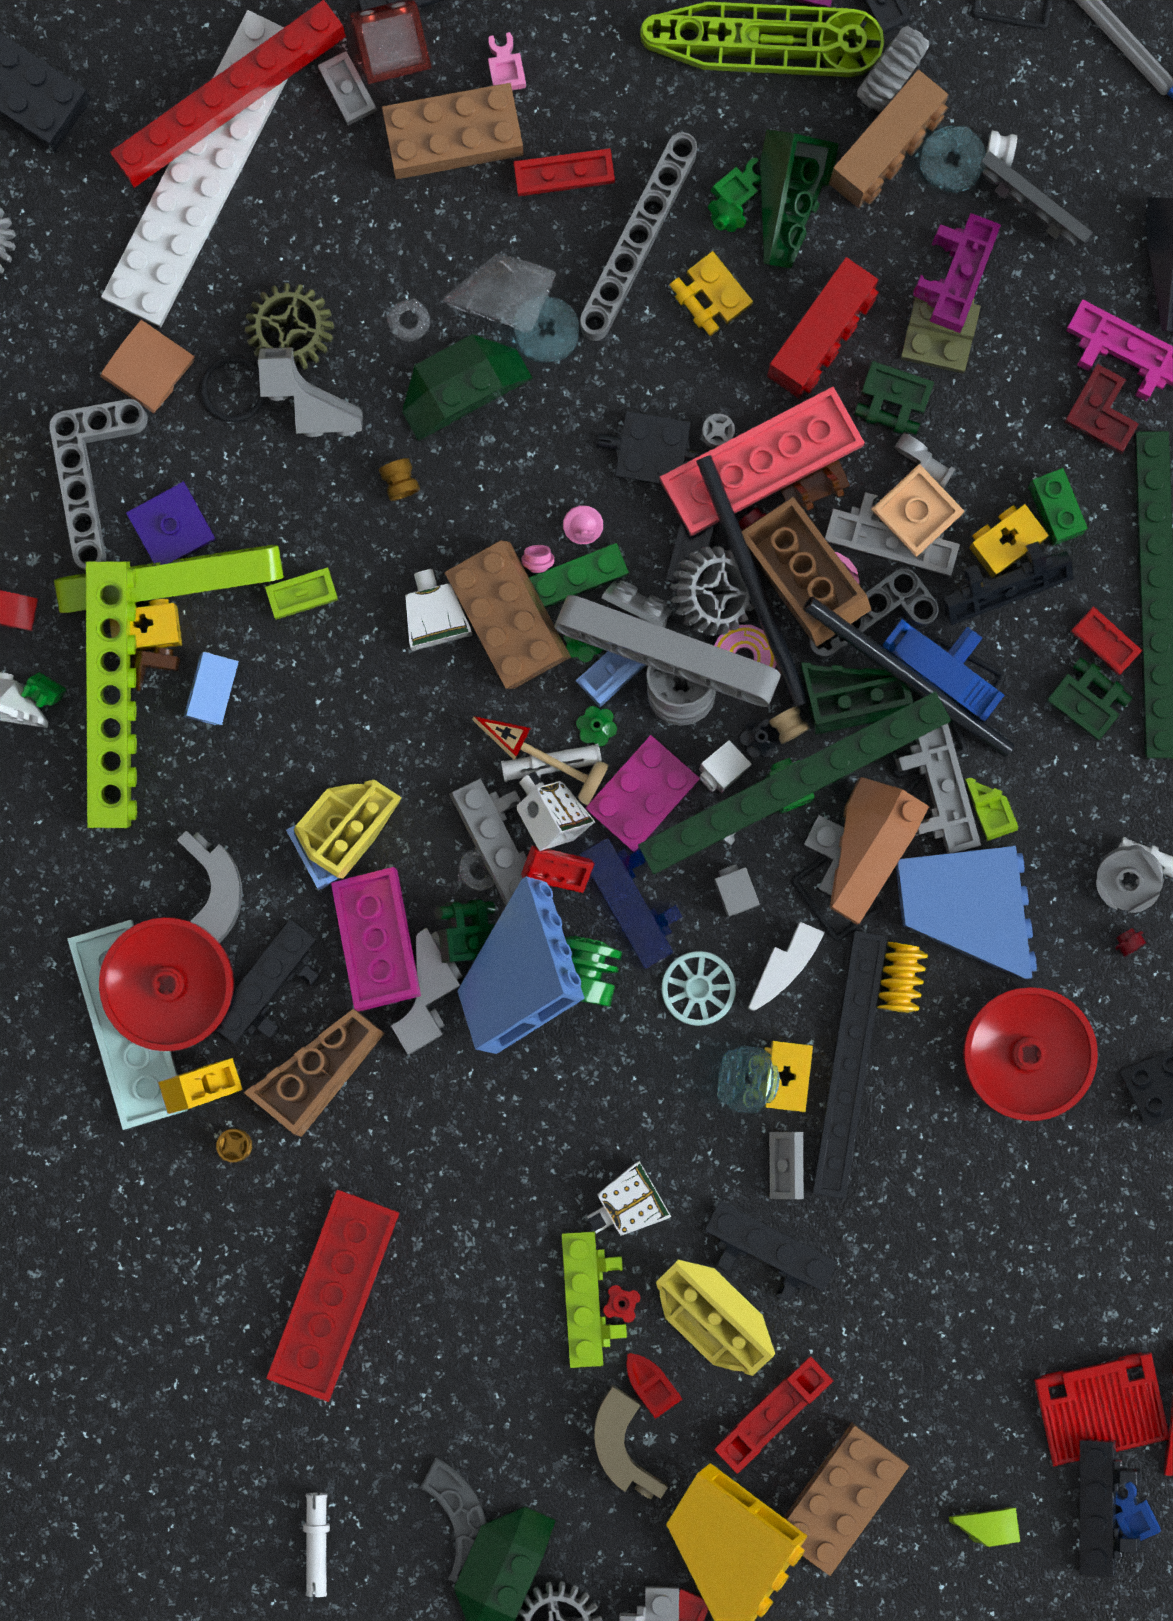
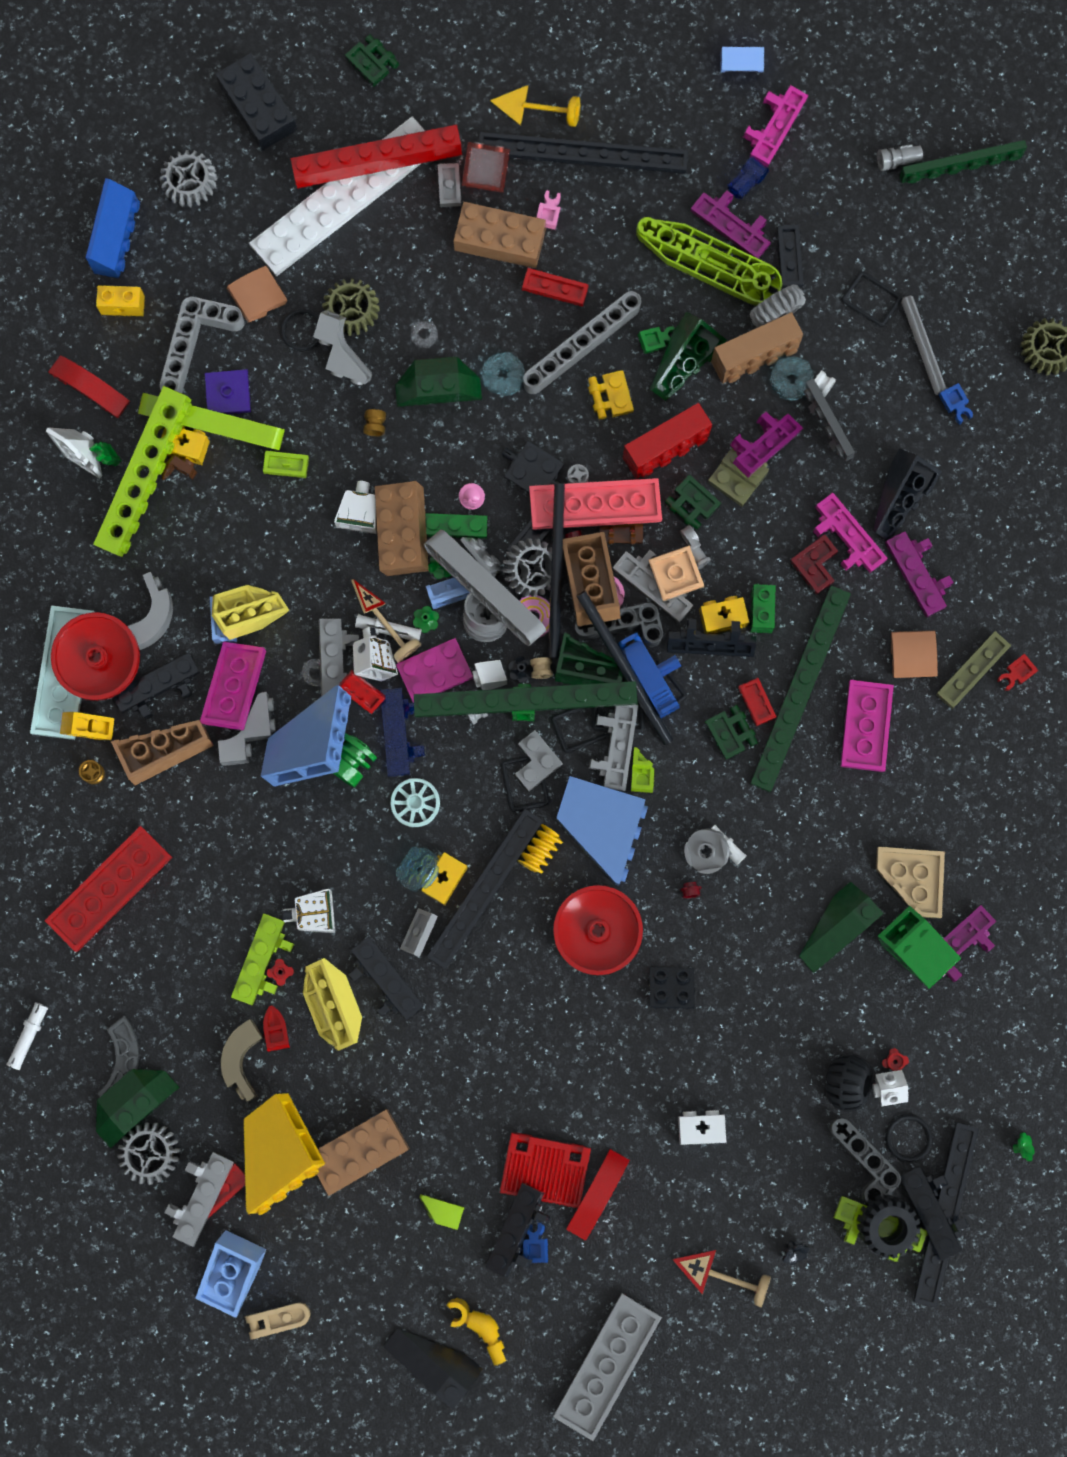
camera: 25 degrees right, 5 degrees down
(211, 688) = (205, 496): light blue hinge -> none
(463, 942) = (281, 708): dark green plate -> none
(504, 291) = (488, 340): clear slope -> none
(537, 558) = (435, 504): bright pink plate -> none
(726, 214) = (640, 352): green plant -> none
(736, 890) = (464, 753): light grey brick -> none
(772, 1414) = (340, 1081): red slope -> none
(785, 966) = (473, 811): white slope -> none
(875, 836) = (563, 754): nougat wedge -> none

